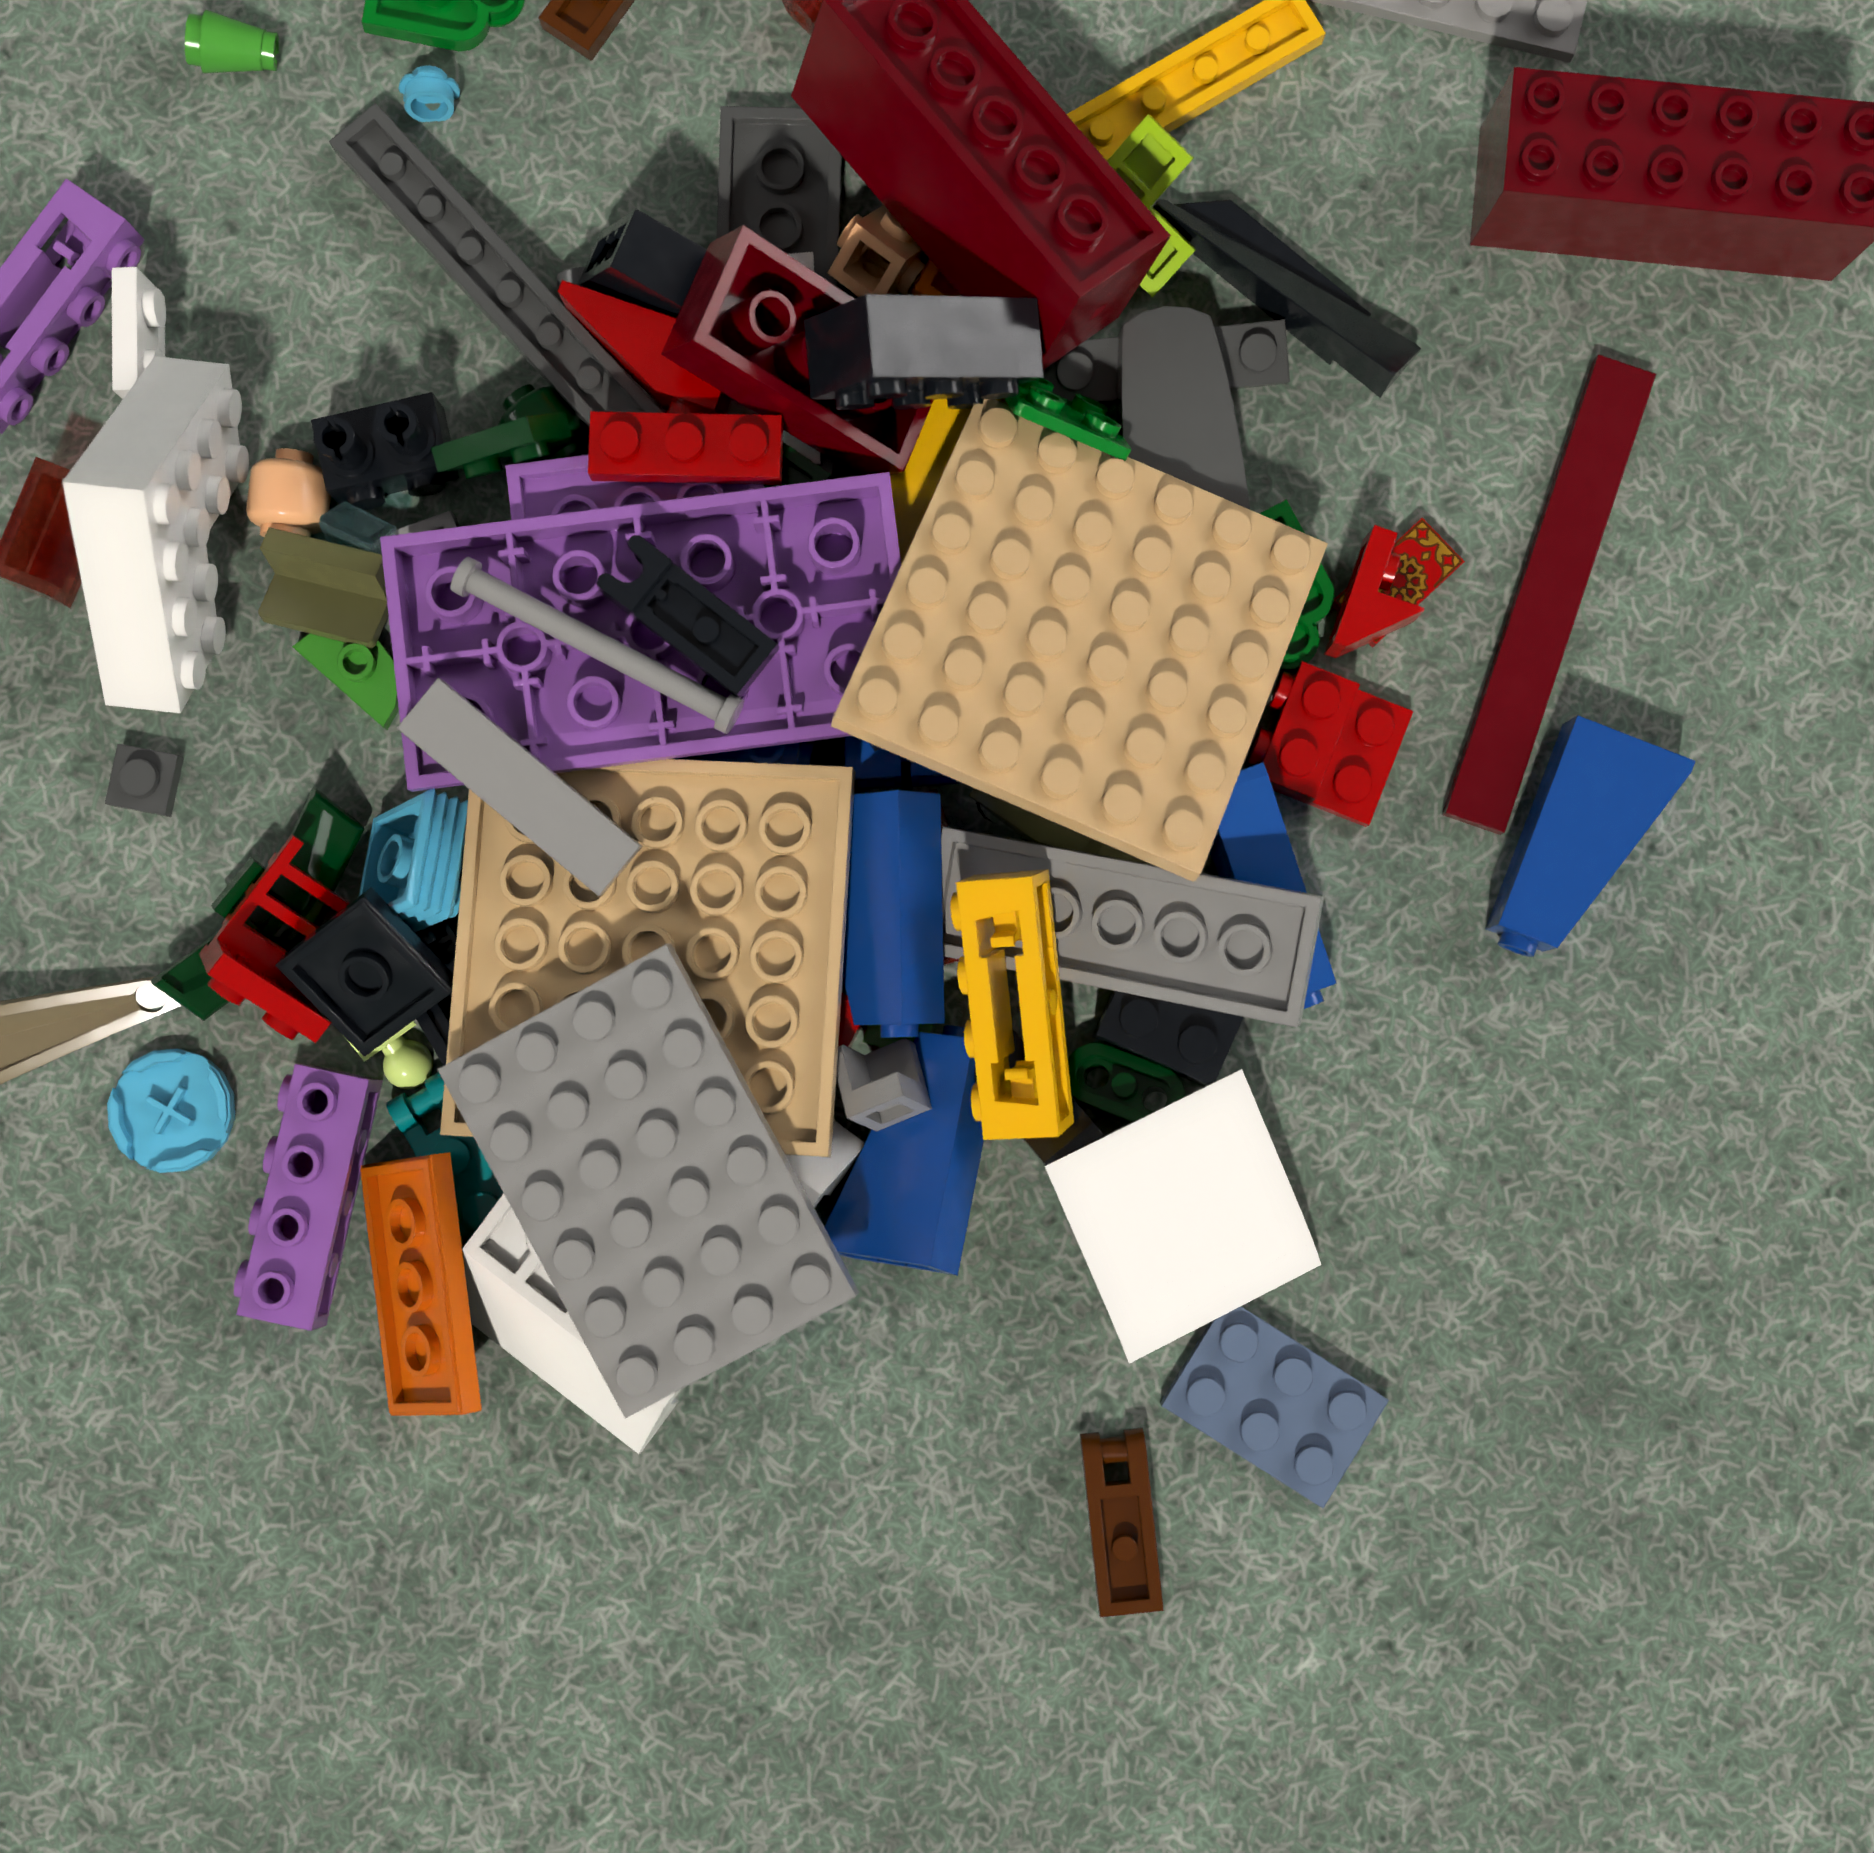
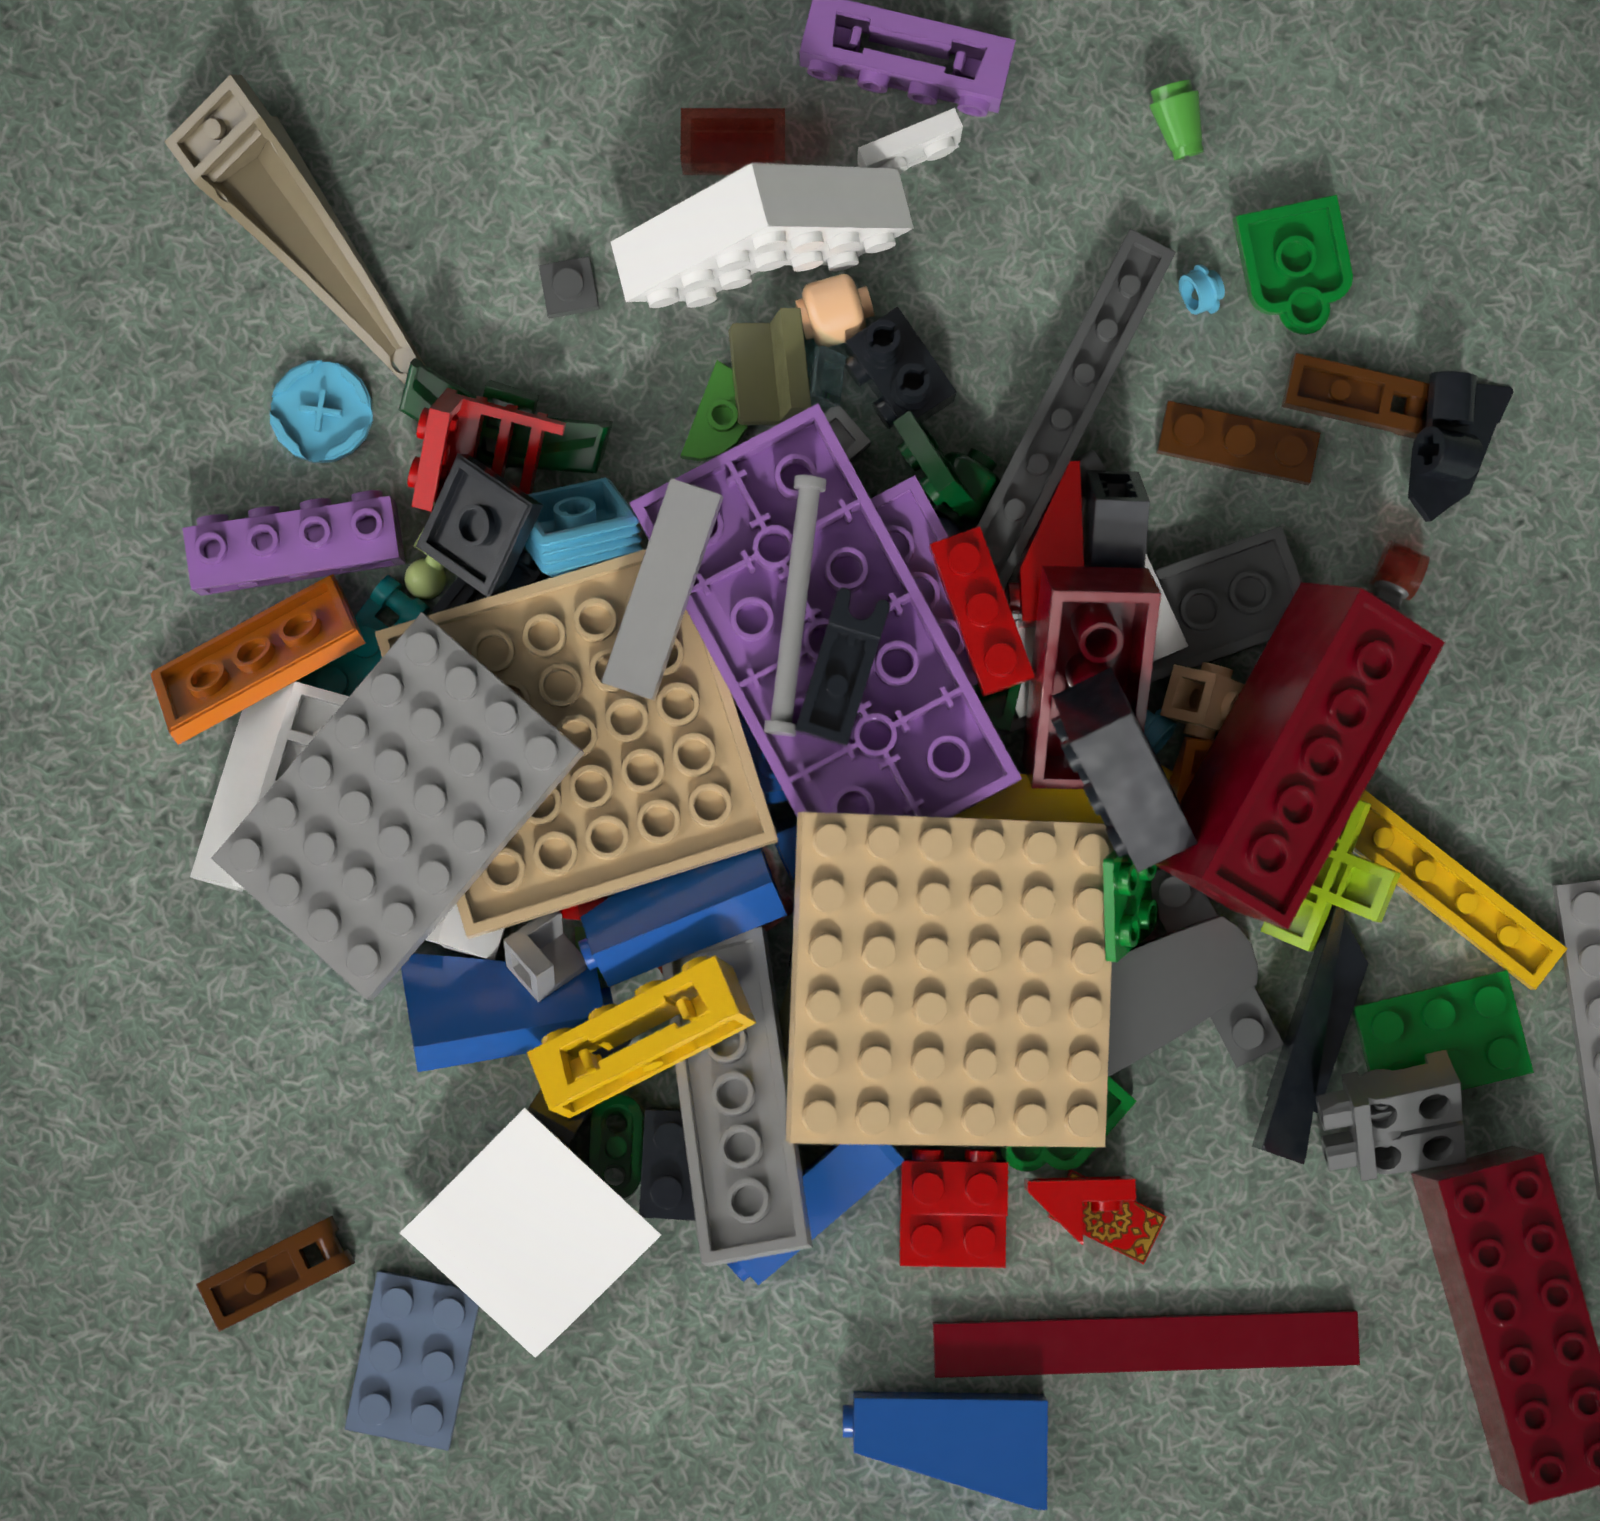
camera: 70 degrees right, 0 degrees up
(612, 121) = (1238, 443): none -> reddish brown plate
(1341, 155) = (1467, 1018): none -> green plate
(1411, 226) = (1395, 1119): none -> dark grey hips

